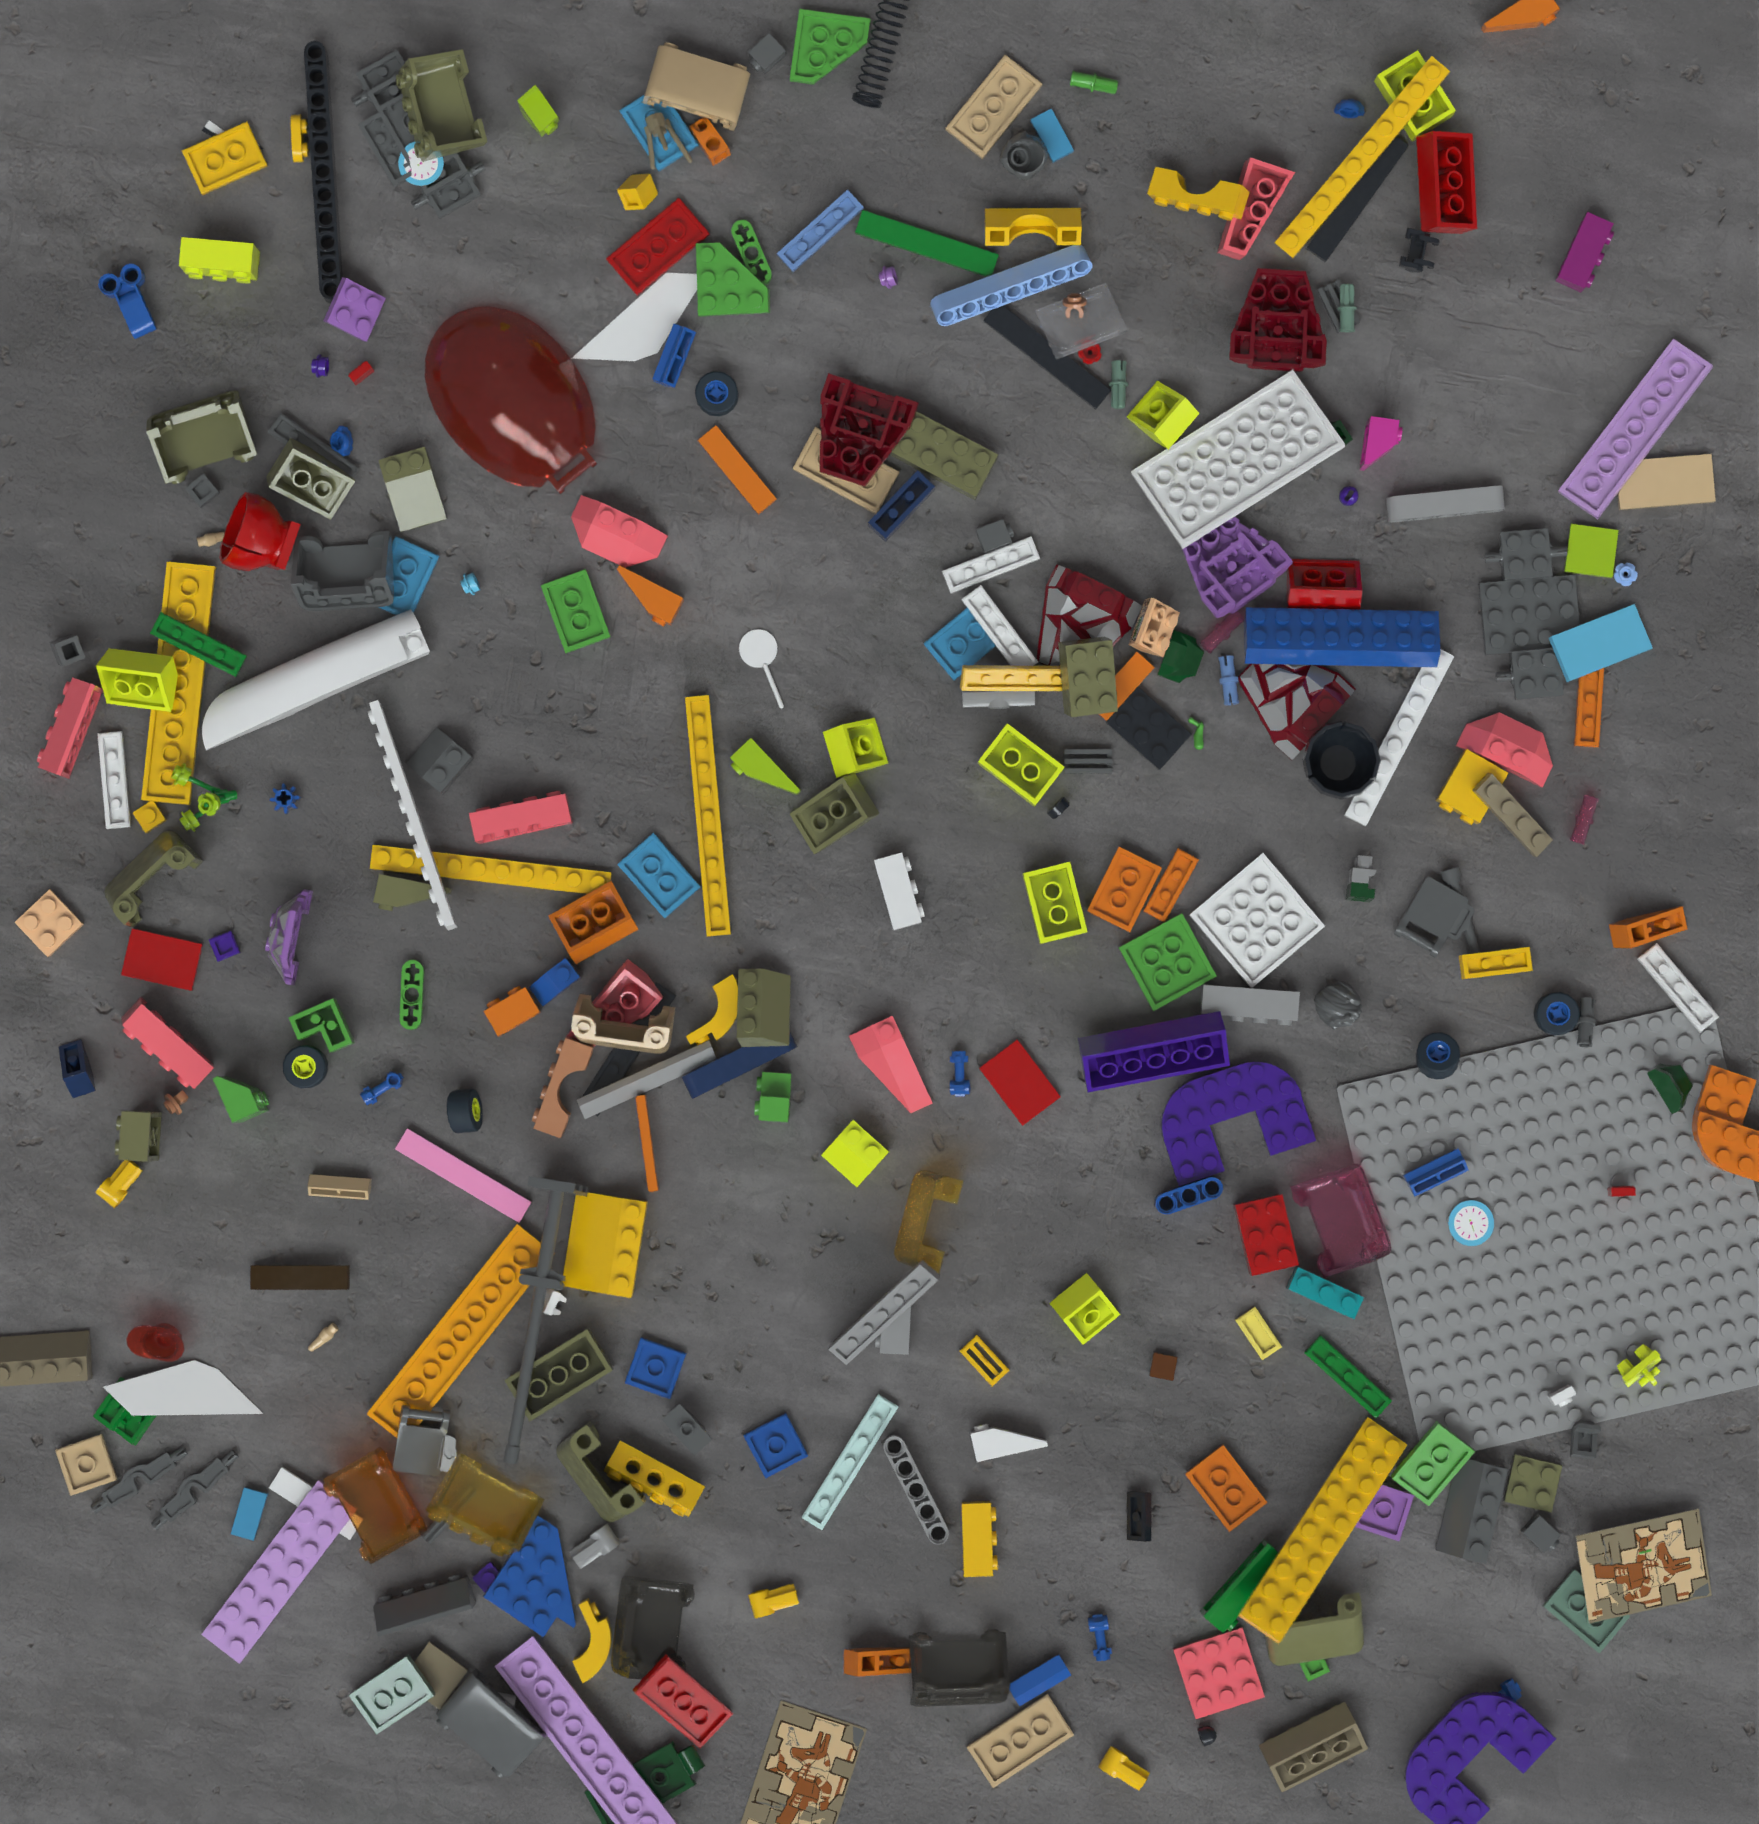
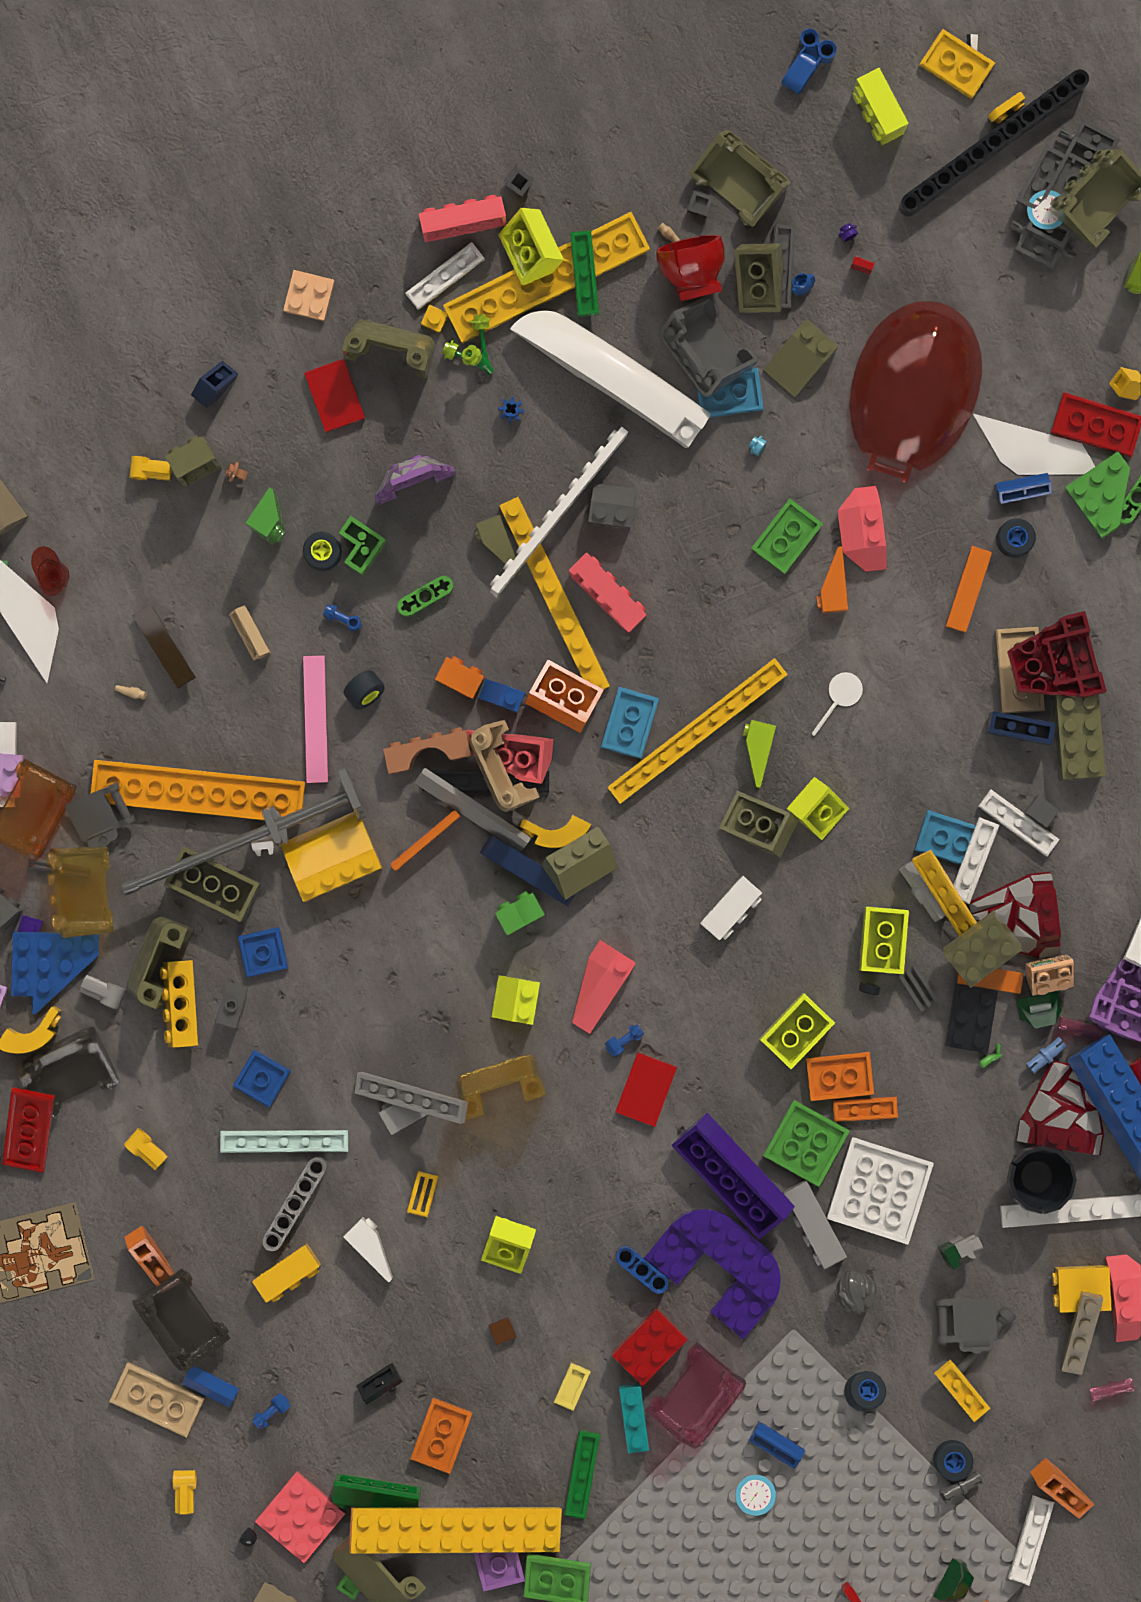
camera: 60 degrees right, 0 degrees up
(166, 1044) = (273, 438): coral wedge -> none
(224, 946) = (373, 435): dark purple tile -> none
(354, 309) = (906, 230): medium lavender plate -> none

